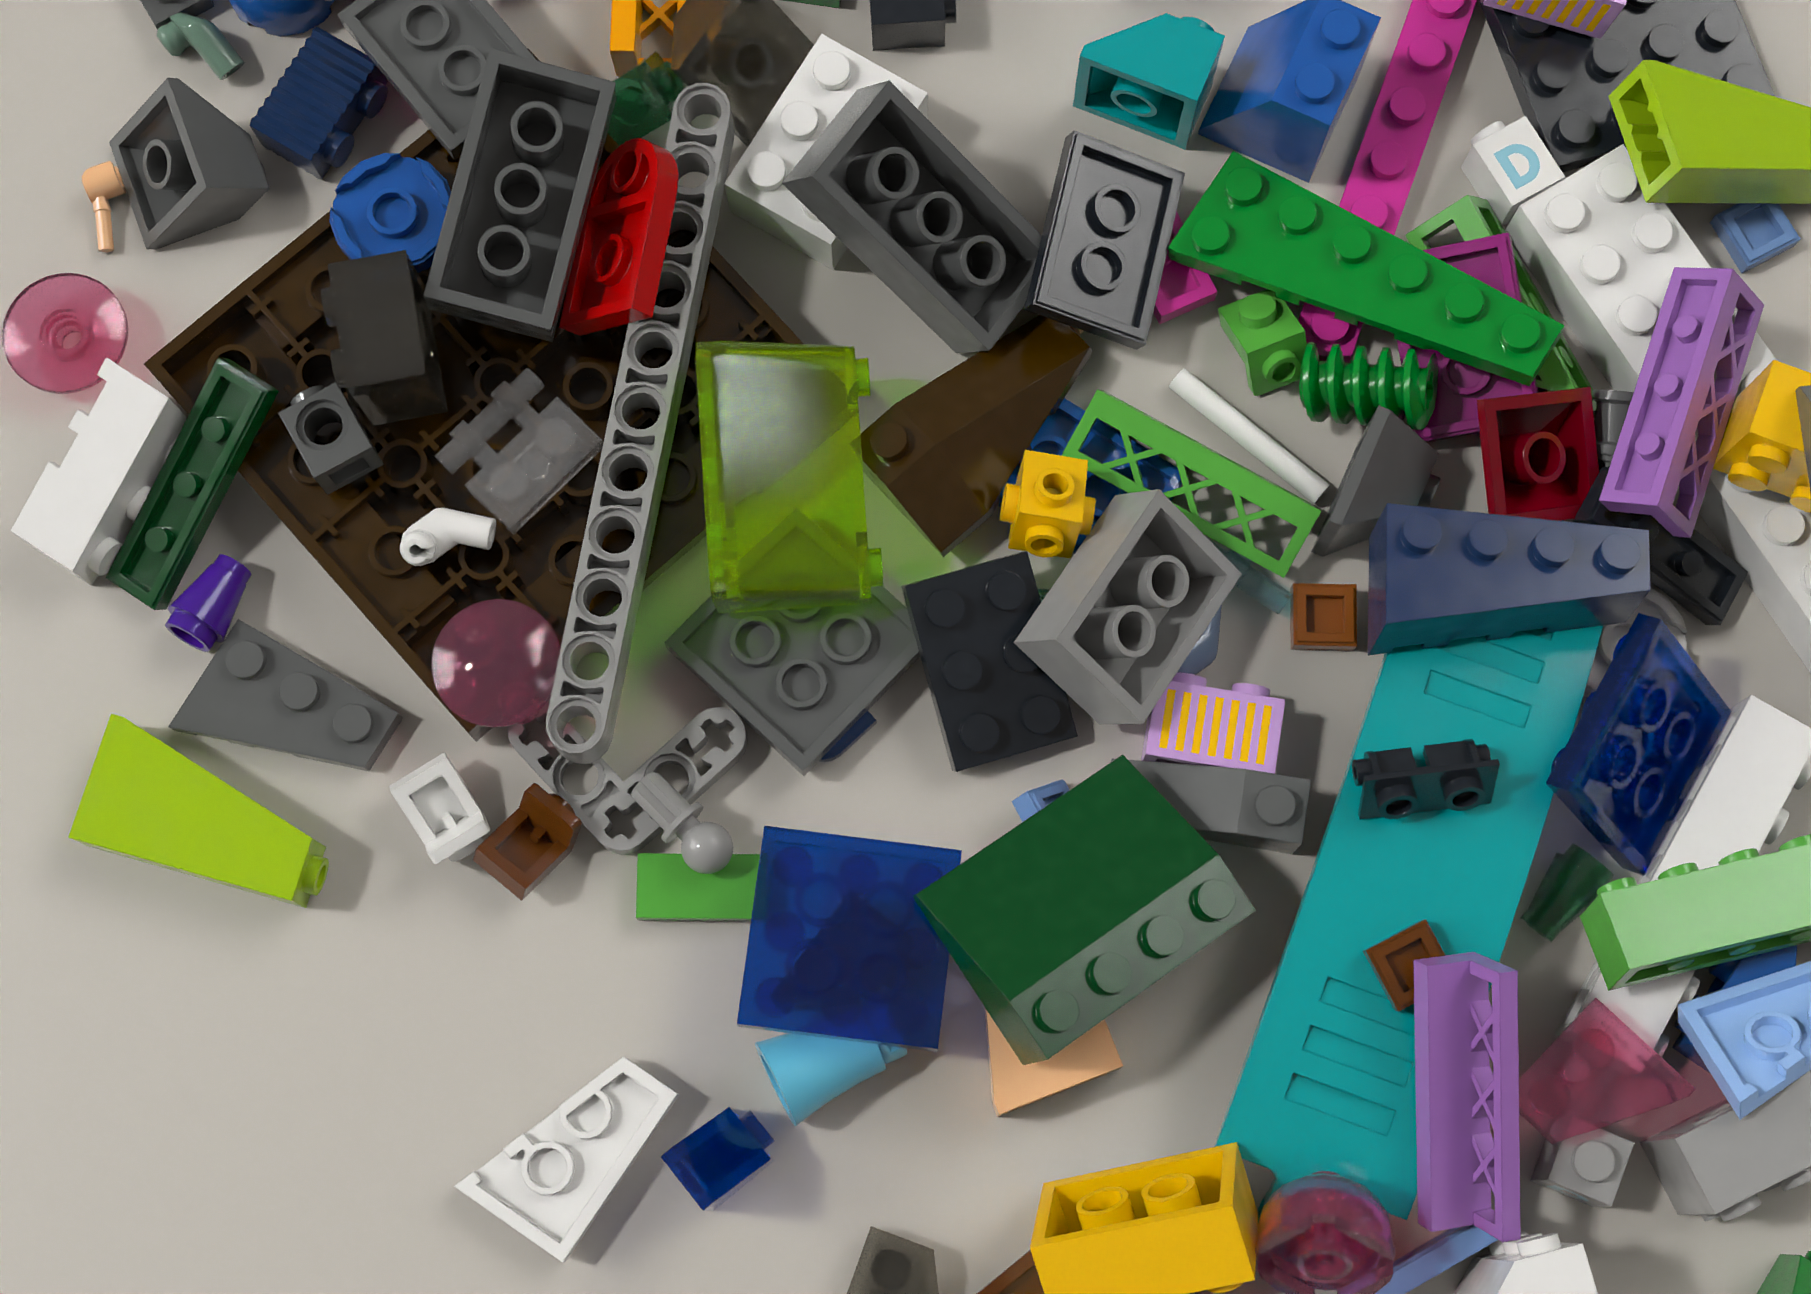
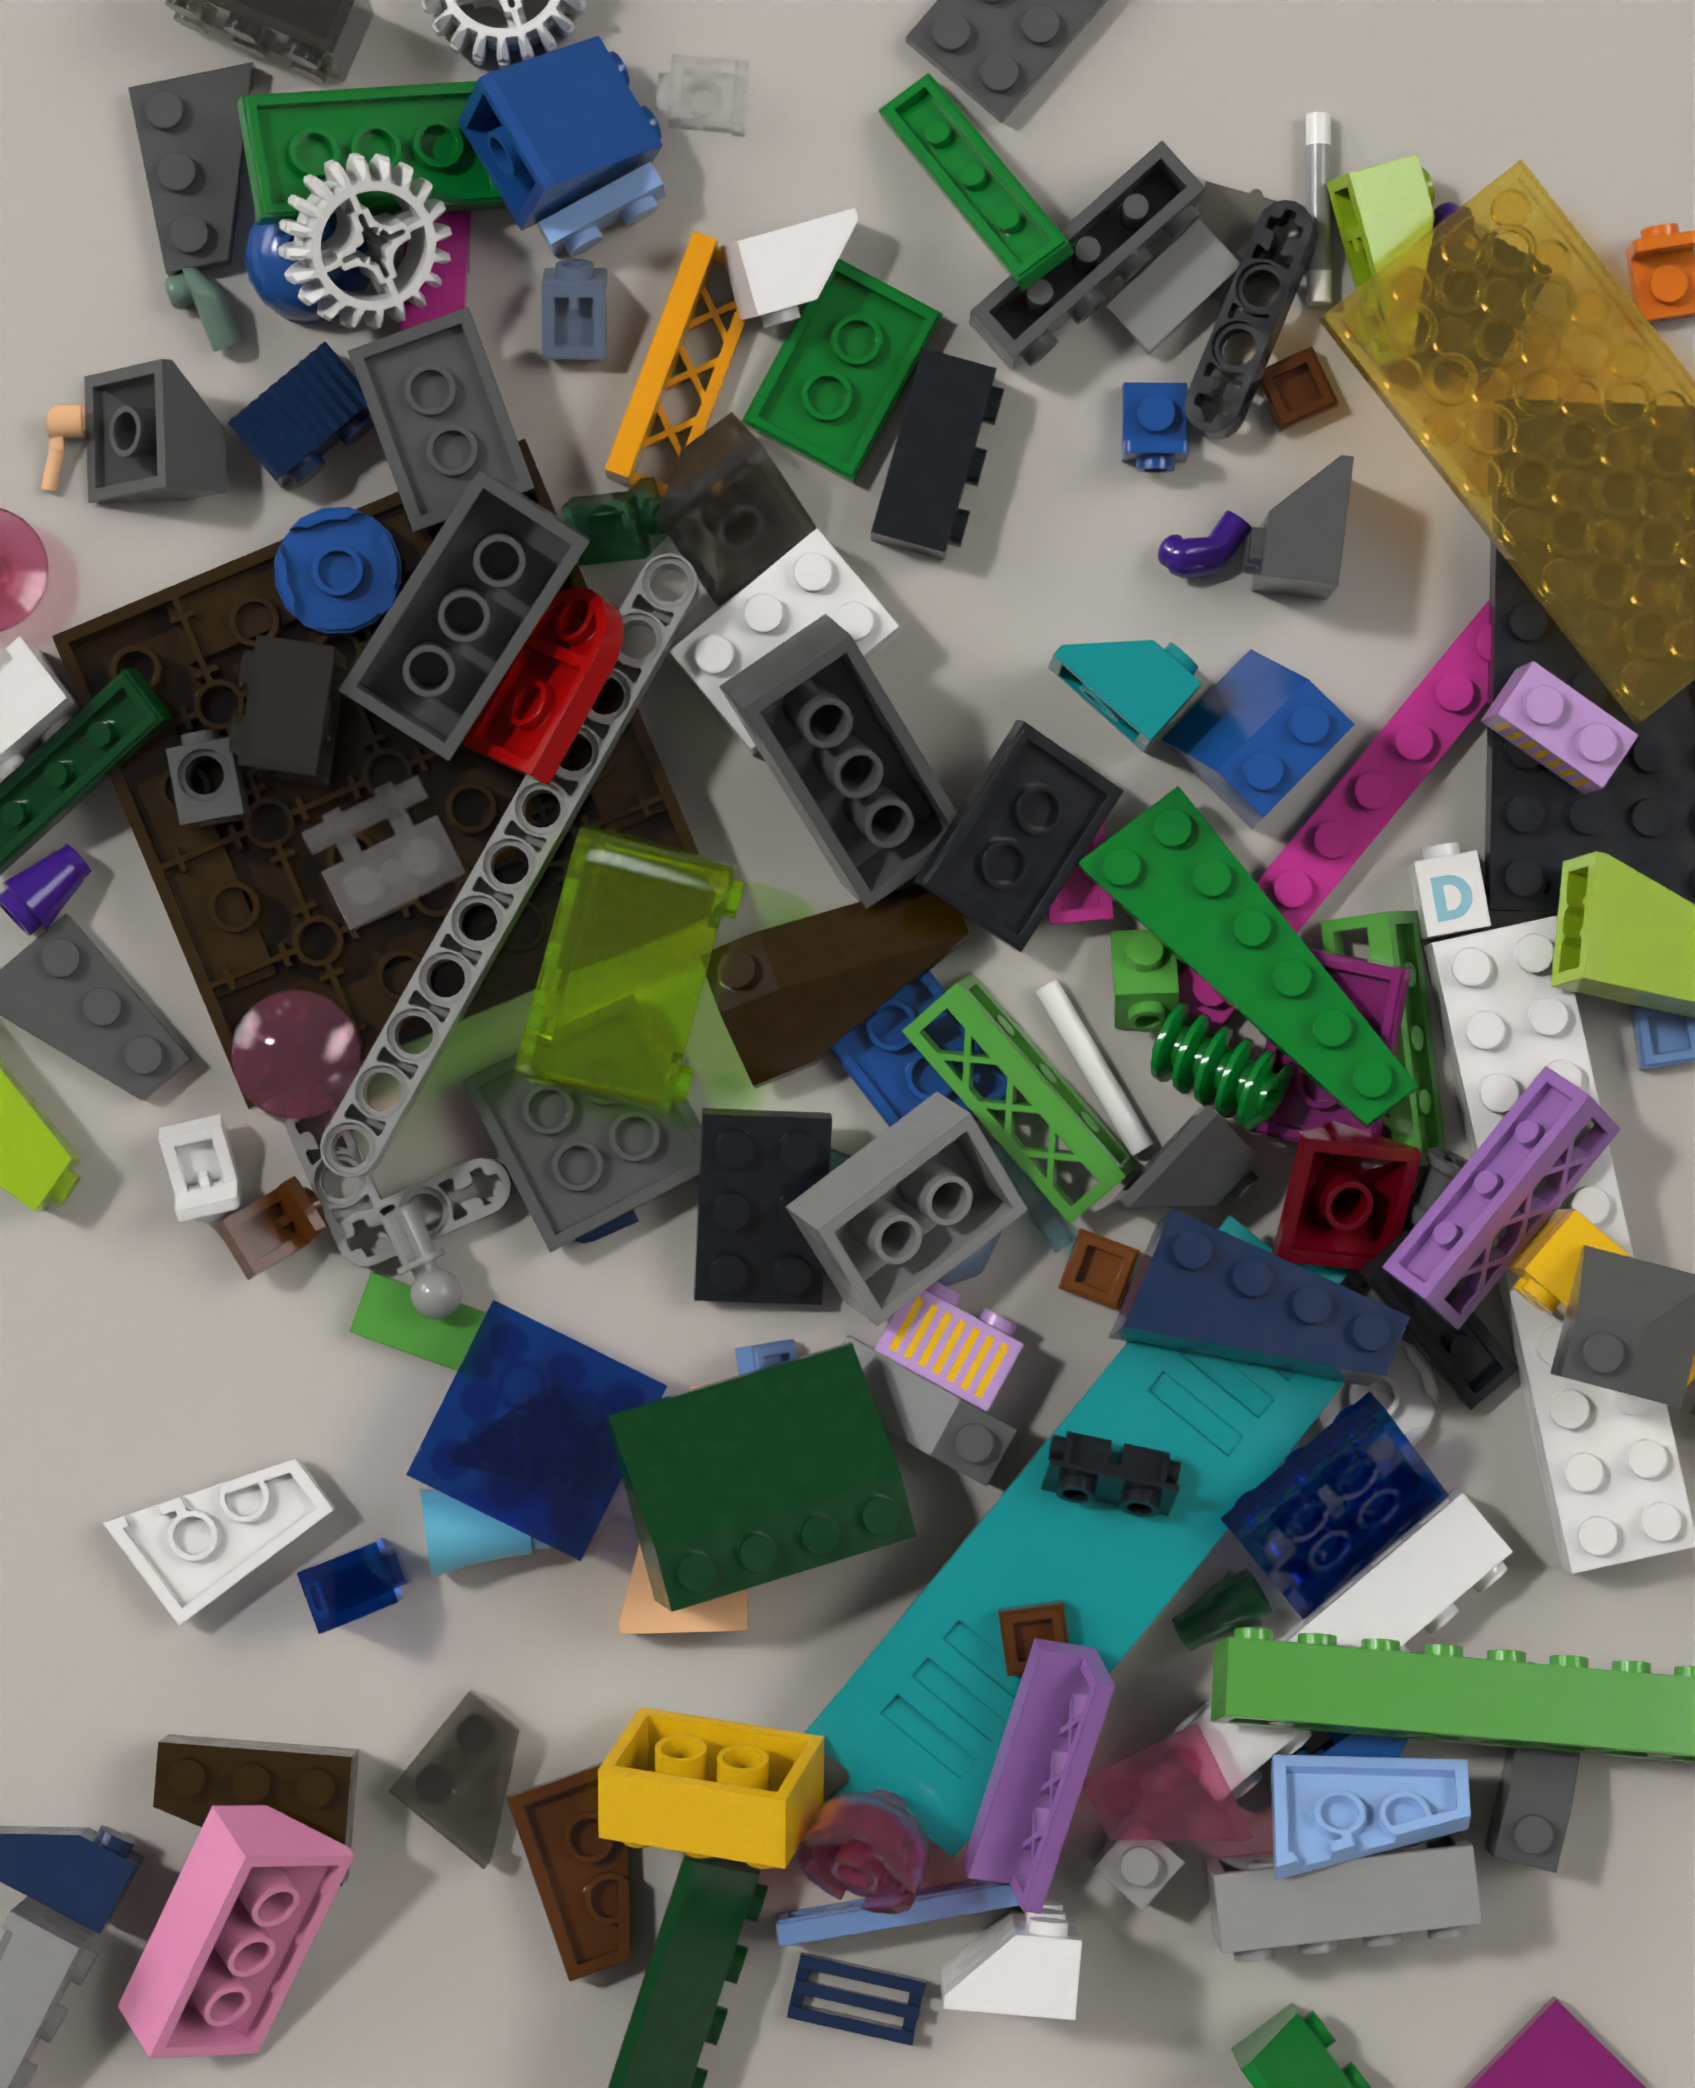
camera: 20 degrees right, 10 degrees up
(443, 530) = (285, 907): white arm -> none
(1048, 505) = (867, 1081): yellow brick -> none

